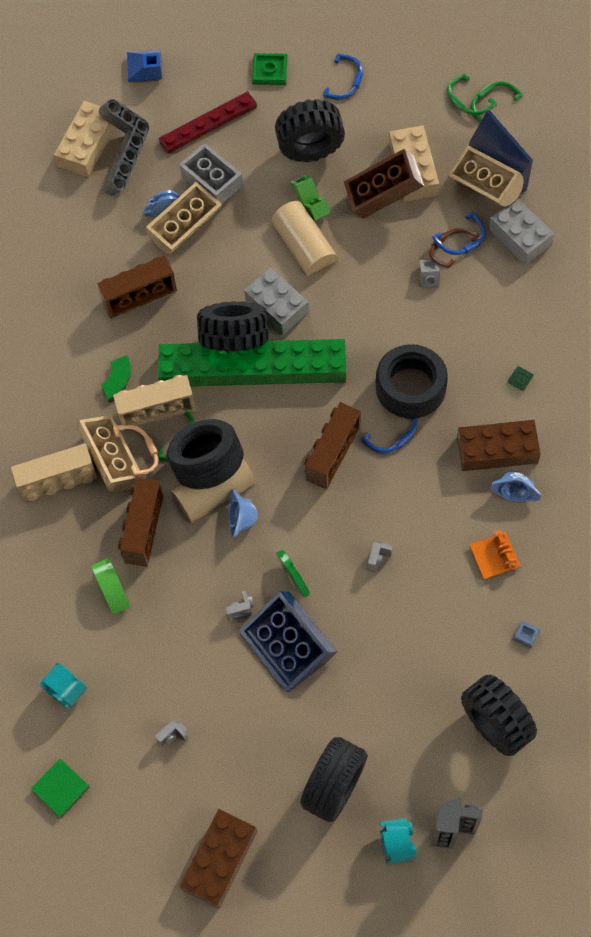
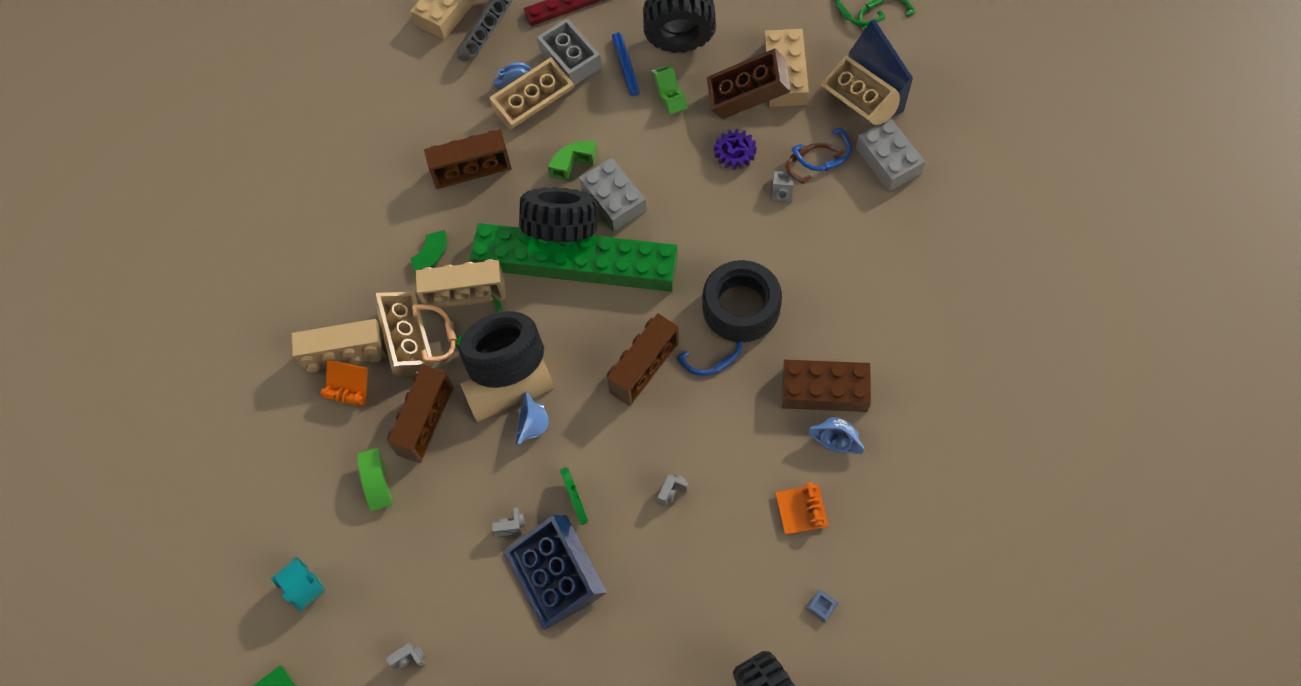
camera: 10 degrees right, 0 degrees up
(66, 505) = (345, 383): none -> orange hinge
(225, 275) = (563, 161): none -> bright green brick
(264, 178) = (625, 64): none -> blue axle
(303, 237) = (654, 130): tan brick -> none
(381, 244) = (735, 149): none -> dark purple gear
(520, 378) = (863, 314): clear green tile -> none

